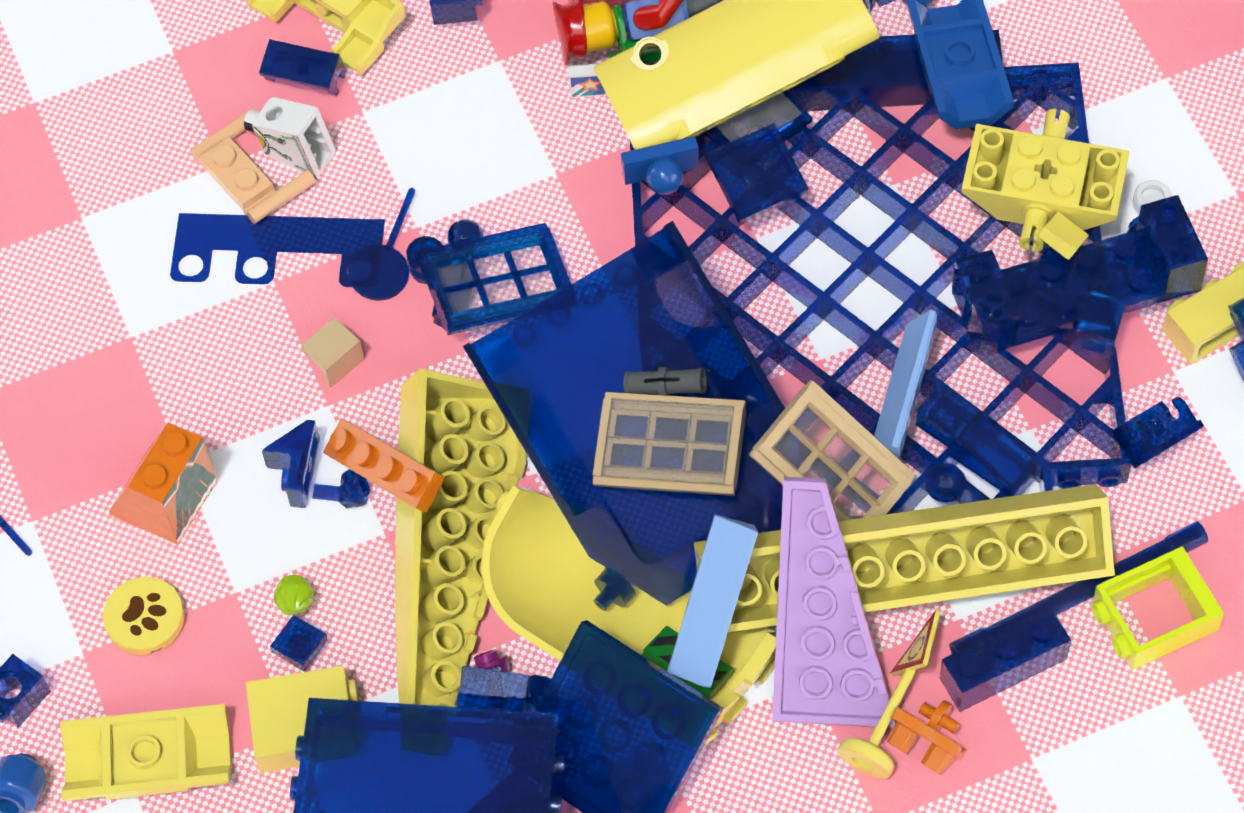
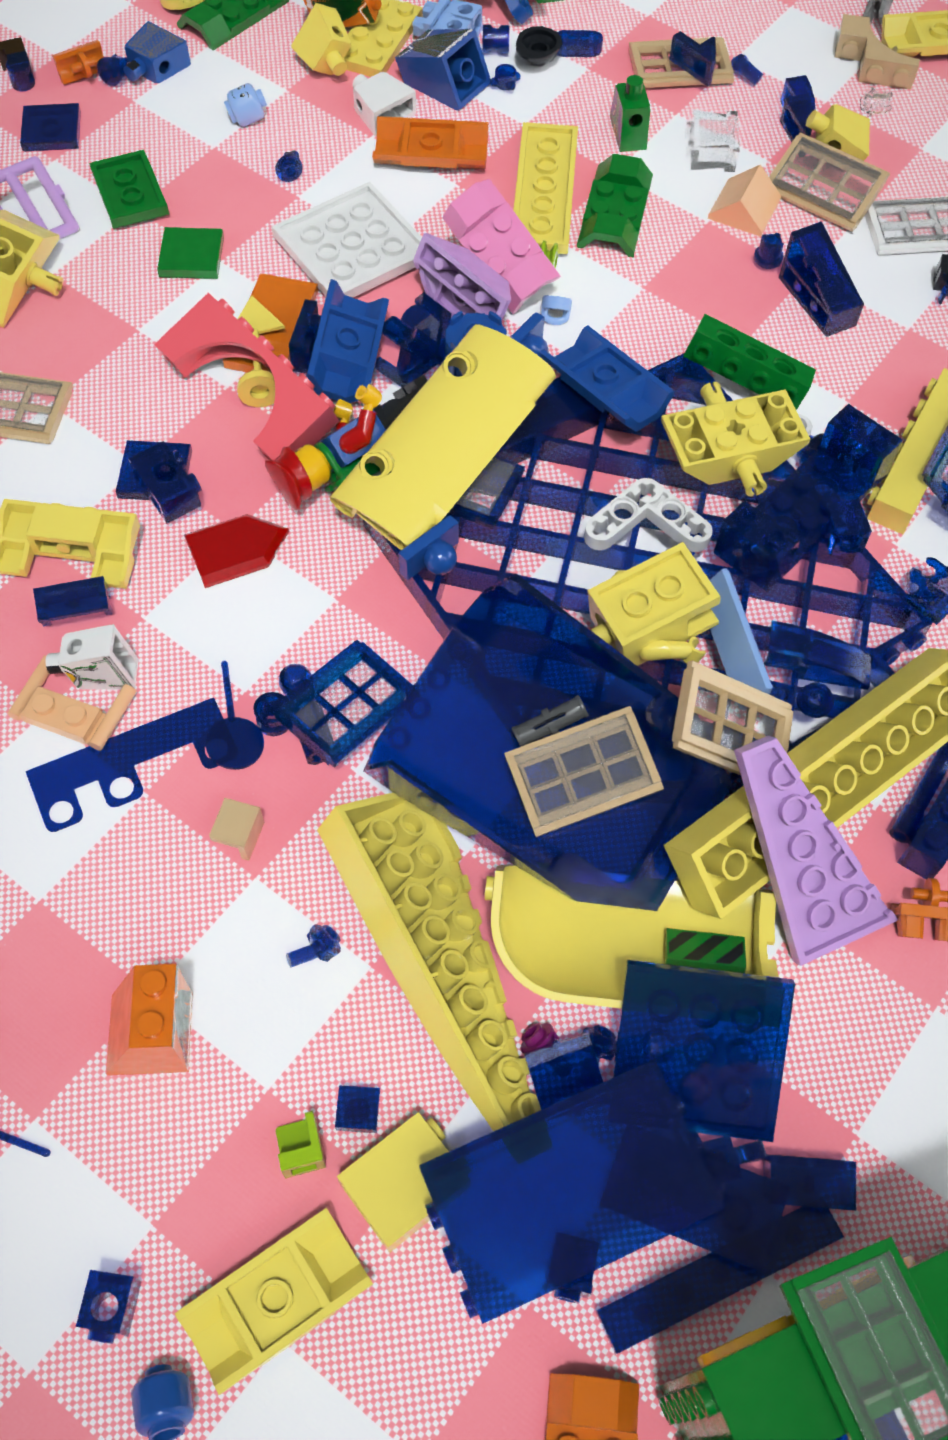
camera: 35 degrees left, 0 degrees up
(143, 615) = (194, 1158): light yellow tile -> none
(234, 650) = (300, 1147): none -> lime panel
(293, 595) = (328, 1066): lime plate -> none
(296, 456) = (256, 937): clear blue slope -> none
(384, 465) = (349, 907): orange plate -> none
(486, 78) = (234, 548): none -> red tile
(584, 81) = (320, 515): tile -> none
(612, 589) = (605, 918): tile -> none
(712, 600) = (721, 887): light blue slope -> none
(756, 173) = (510, 525): clear blue tile -> none
(831, 321) = (656, 608): none -> light yellow torso
(867, 755) = (881, 851): light yellow piece -> none
(913, 216) = (651, 509): none -> white beam
(1063, 235) = (778, 471): light yellow tile -> none
(1136, 104) = (748, 360): none -> green brick

